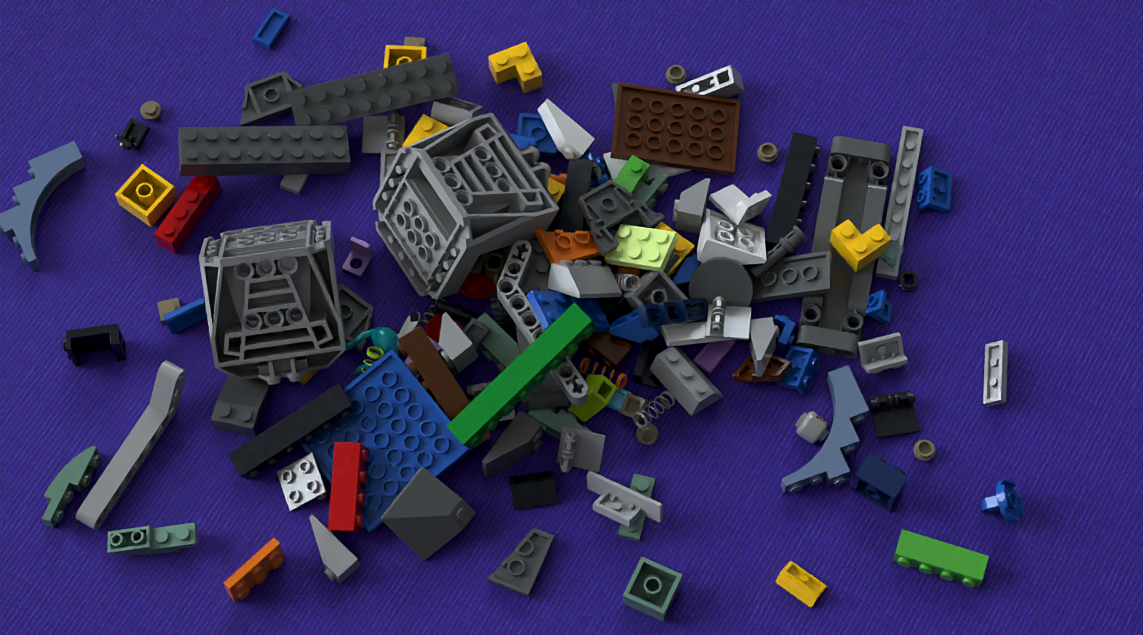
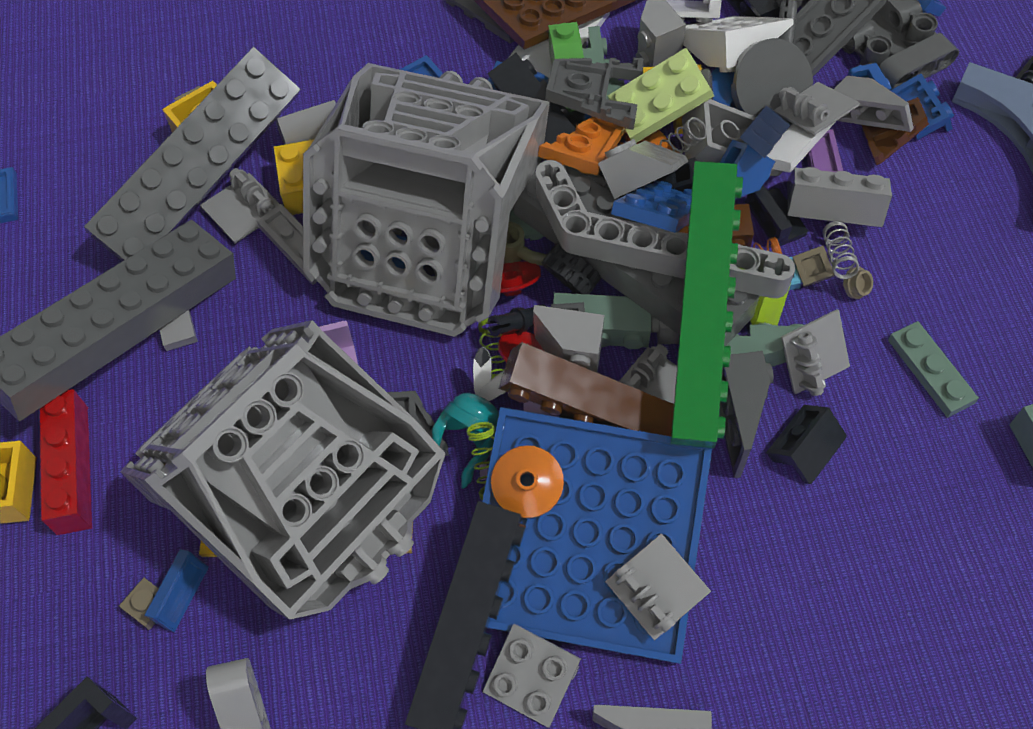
camera: 40 degrees left, 5 degrees down
(241, 406) = (357, 645): dark grey slope -> none
(267, 98) = (62, 262): dark grey wing -> none
(347, 488) = (608, 630): red brick -> none
(382, 398) = (533, 499): none -> orange dish
(384, 486) = (658, 586): none -> light grey hinge
(427, 514) = (738, 572): dark grey slope -> none
(517, 63) = (331, 39): yellow brick -> none
(524, 563) = (895, 537): dark grey wing -> none
(566, 133) = (442, 55): white slope -> none
(621, 502) = (925, 370): light grey bracket -> none
(811, 427) = (1001, 146): light grey head -> none
(882, 353) = (978, 35): light grey bracket -> none

